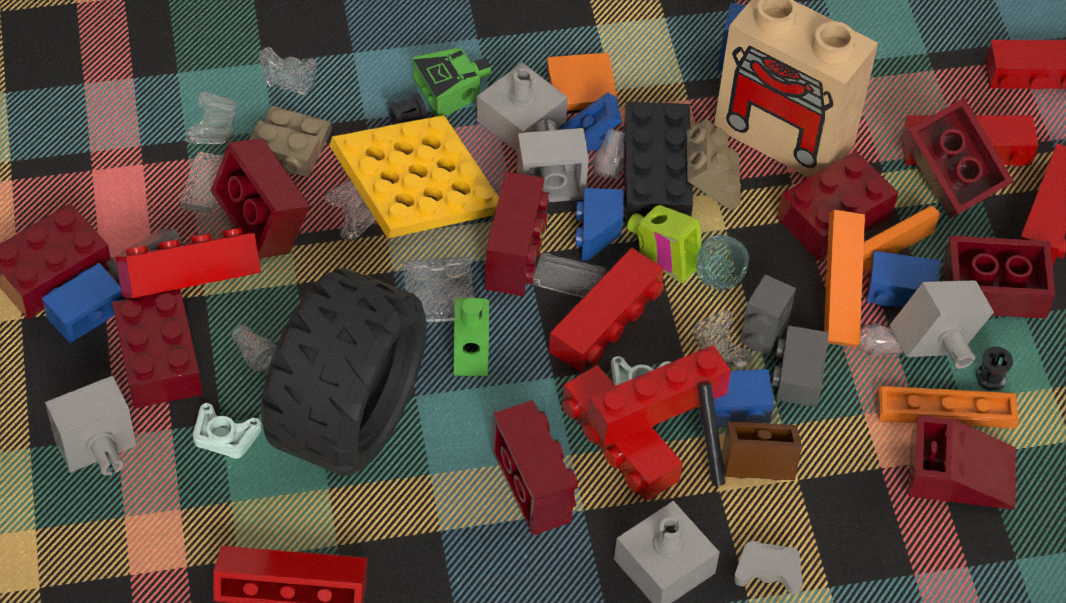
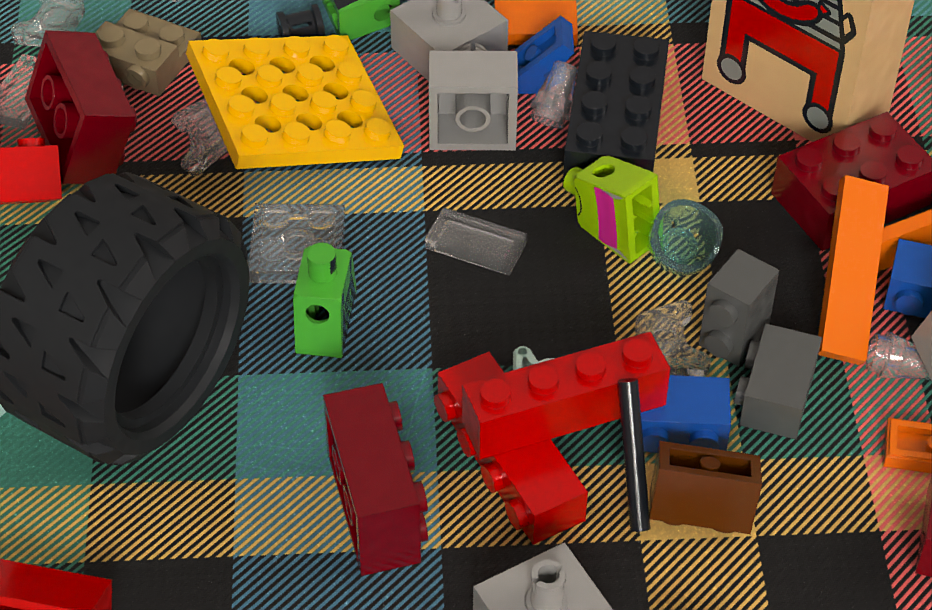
camera: 10 degrees right, 5 degrees down
(516, 234) = (408, 178): dark red brick -> none
(601, 220) = (529, 174): blue slope -> none
(606, 311) = (516, 285): red brick -> none
(713, 164) = (689, 114): dark tan plate -> none

